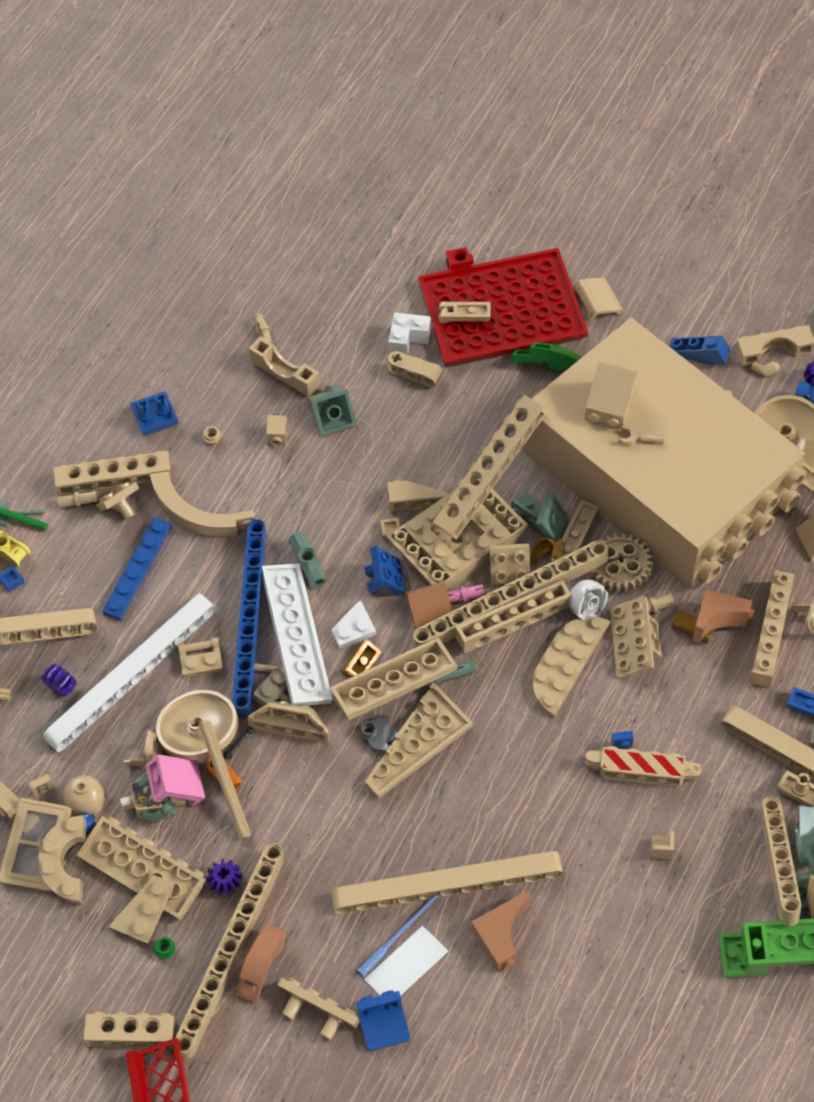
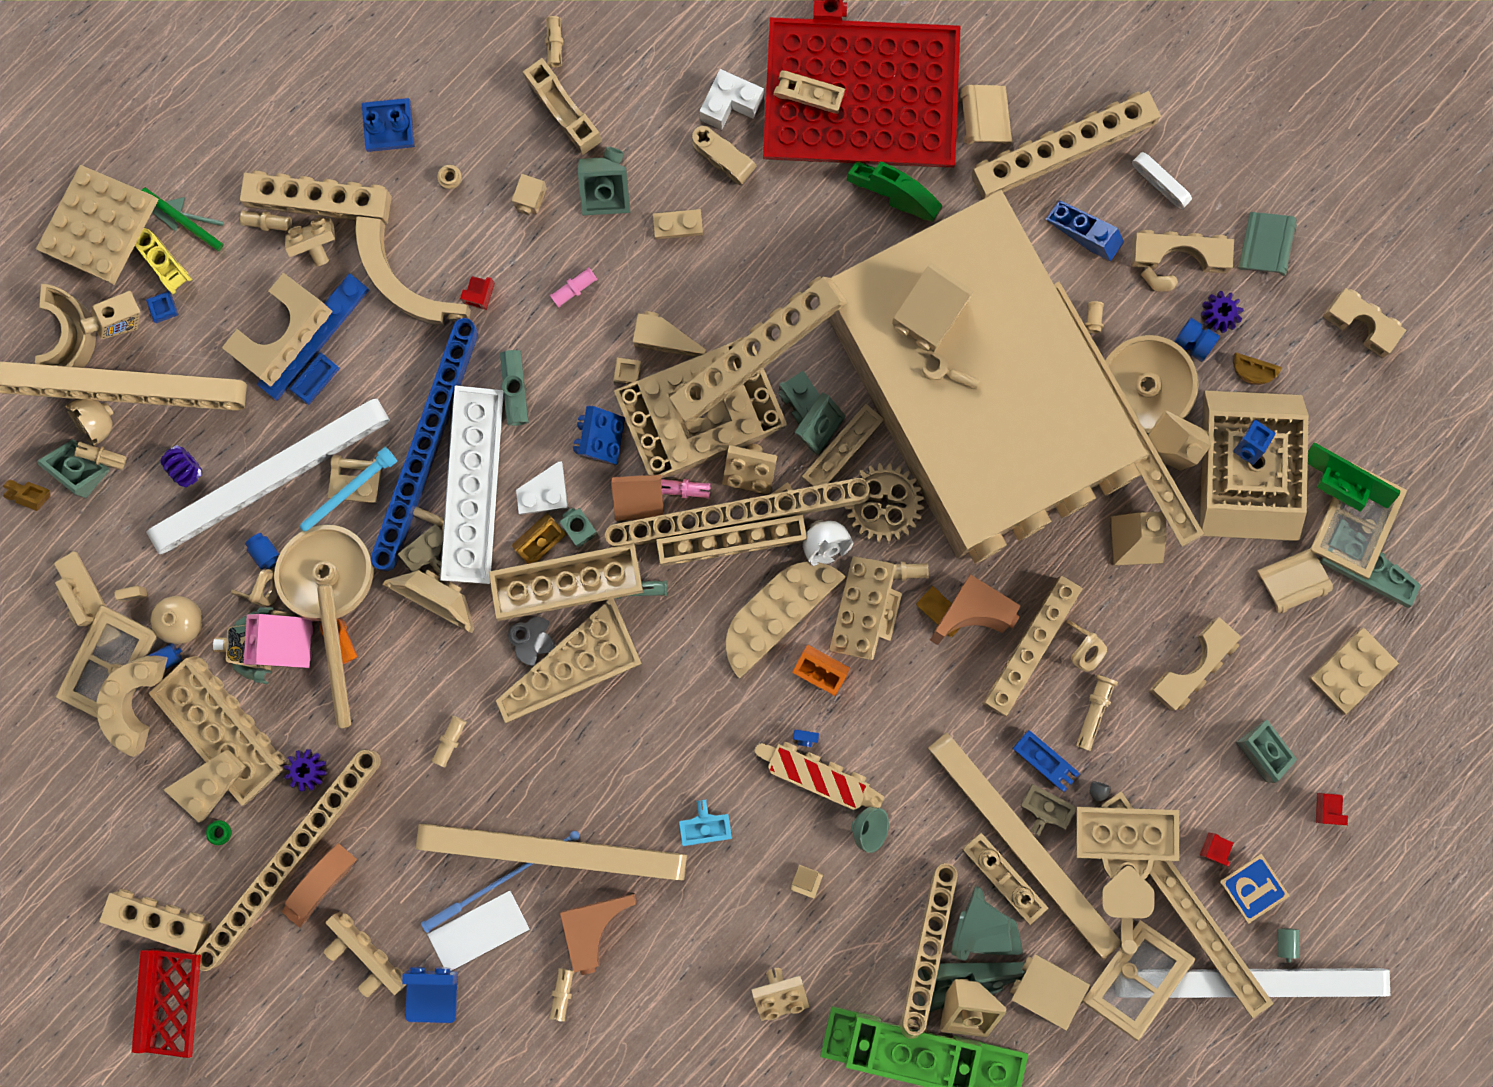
camera: 20 degrees right, 25 degrees up
(109, 587) = (306, 317): none -> tan arch
(140, 724) = (262, 551): none -> blue brick
(146, 596) = (314, 378): none -> blue tile
(221, 632) = (384, 460): none -> medium azure piece
(228, 754) = (353, 615): black hinge -> none
(259, 504) = (478, 292): none -> red panel
(330, 482) = (573, 287): none -> bright pink pin
(336, 824) = (449, 741): none -> tan pin
(392, 648) = (586, 534): none -> sand green brick
(396, 423) = (678, 224): none -> tan plate
(493, 990) = (561, 994): none -> tan pin
(544, 546) = (799, 453): pearl gold helmet -> none
(566, 829) = (705, 827): none -> medium azure plate
(616, 689) = (821, 670): none -> orange brick
(671, 294) = (1139, 104): none -> tan brick
(675, 935) = (780, 996): none -> tan plate
(698, 790) = (875, 829): none -> sand green piece
(730, 302) = (1161, 180): none -> white beam

